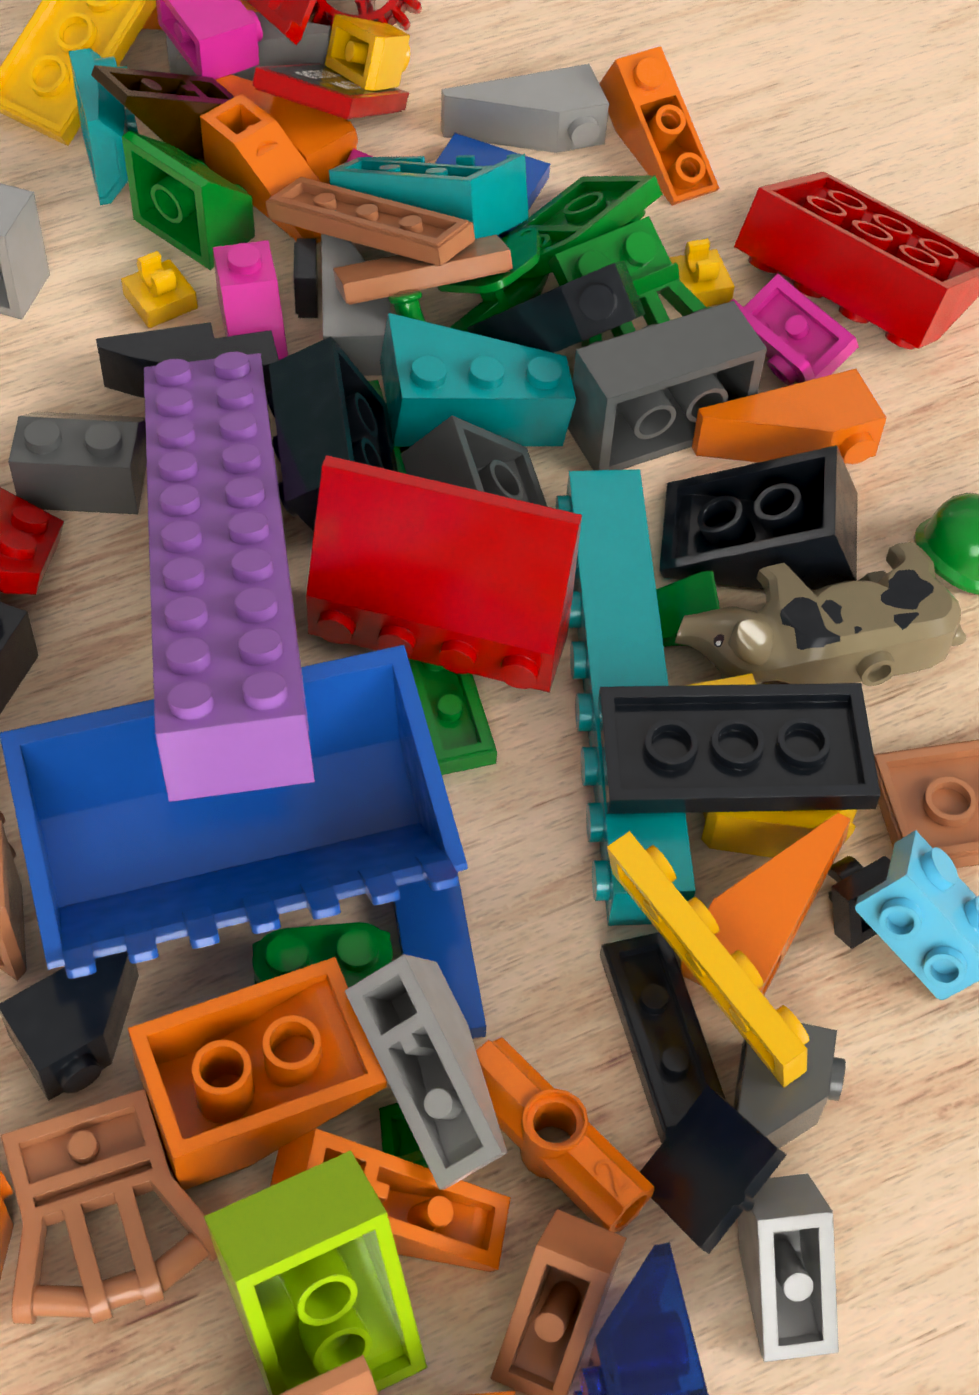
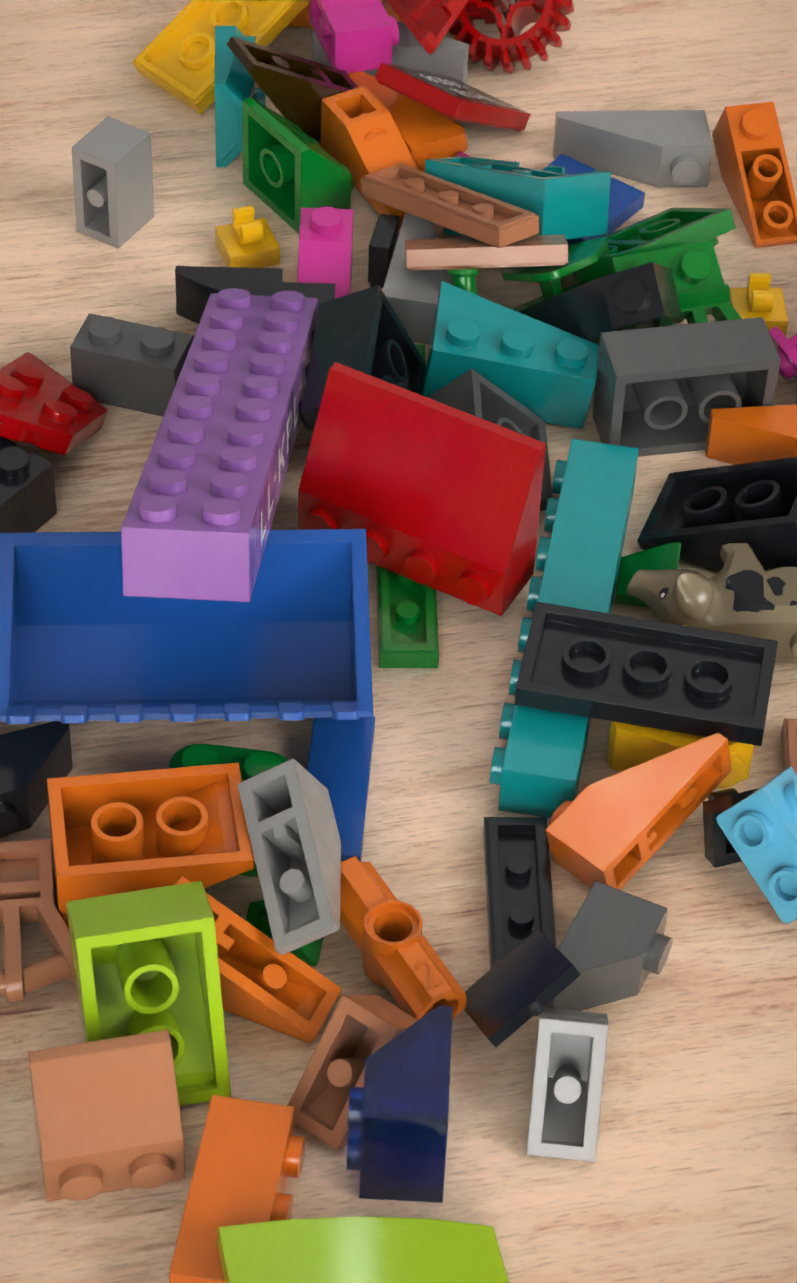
camera: 15 degrees right, 10 degrees down
(368, 52) = (498, 71): yellow slope -> none
(727, 978) = (575, 840): yellow plate -> none

